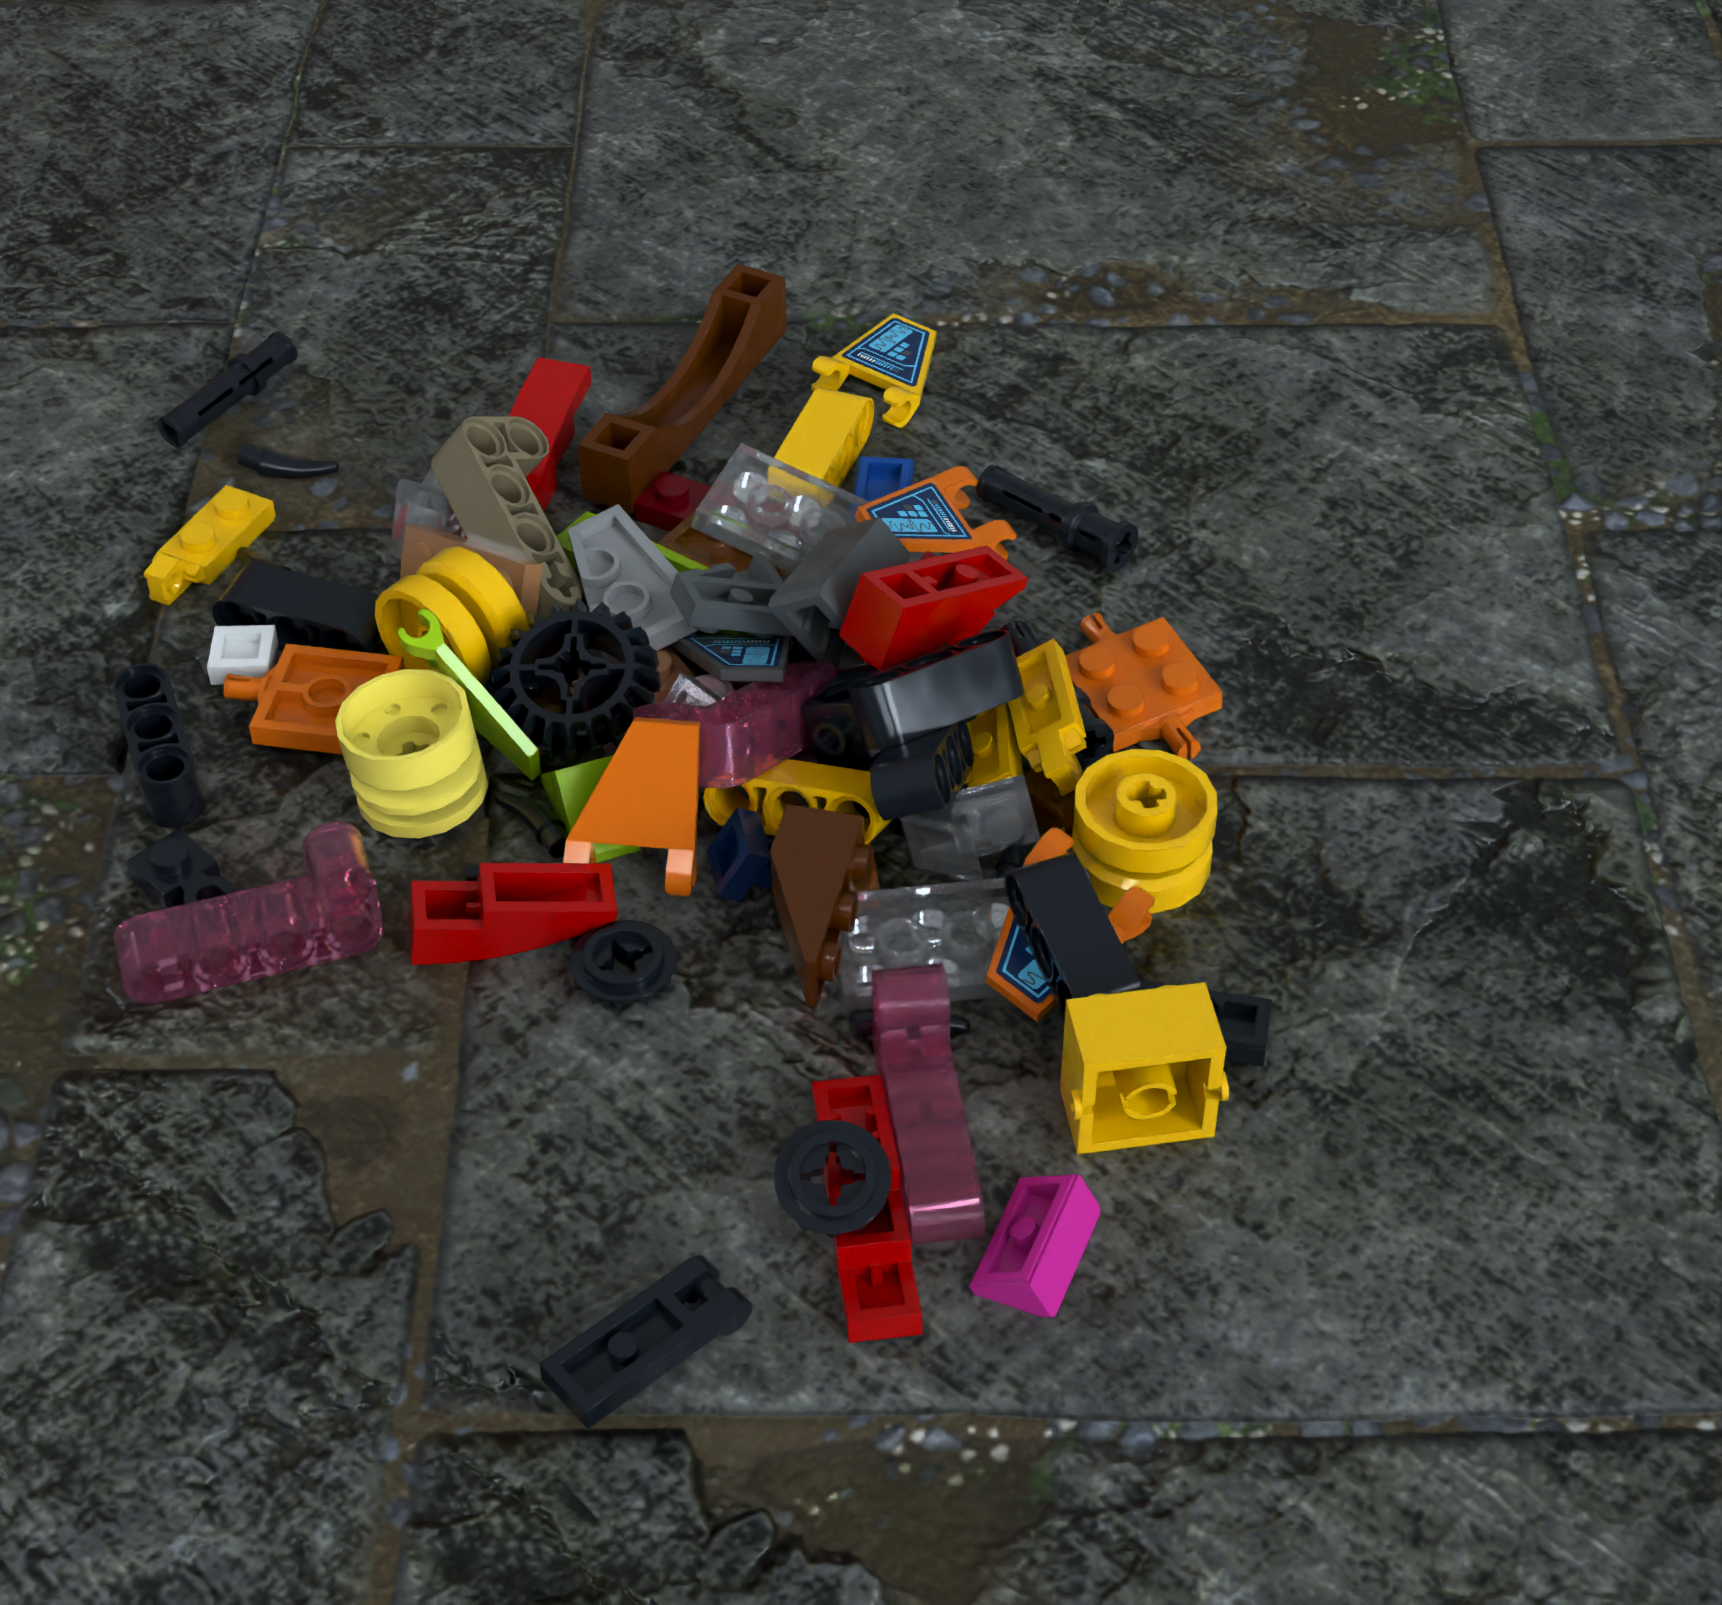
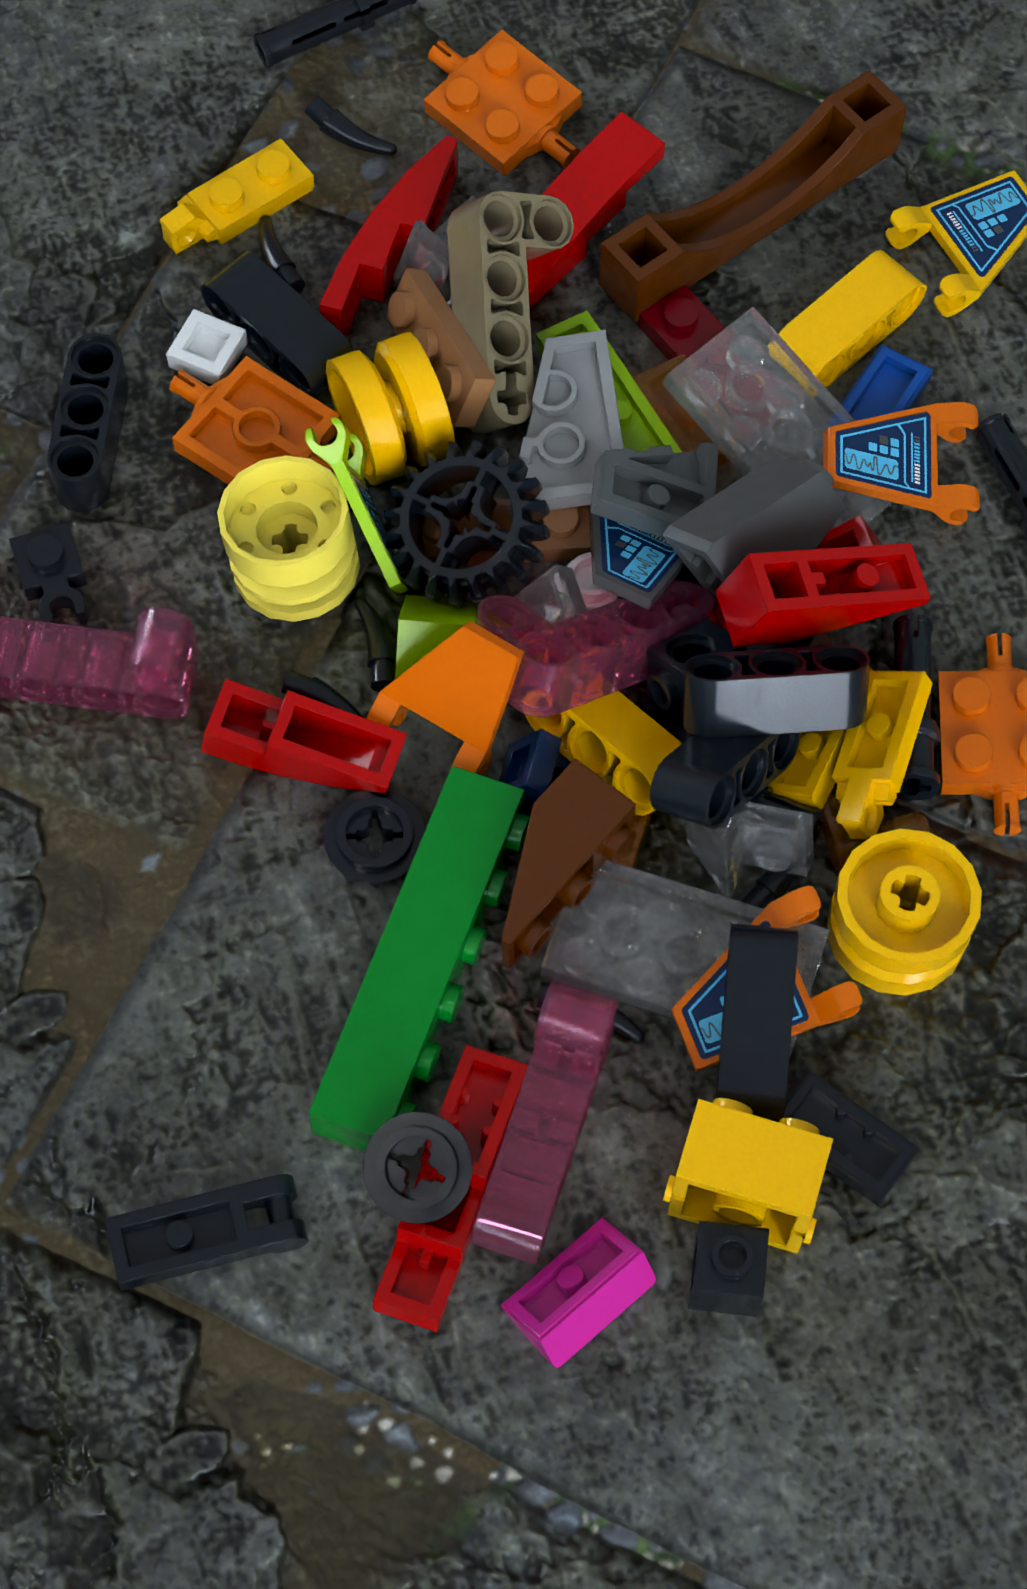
camera: 25 degrees right, 20 degrees up
(371, 513) = (376, 250): none -> red slope
(415, 399) = (503, 103): none -> orange plate
(728, 1040) = (420, 959): none -> green brick
(1165, 1157) = (728, 1268): none -> black brick

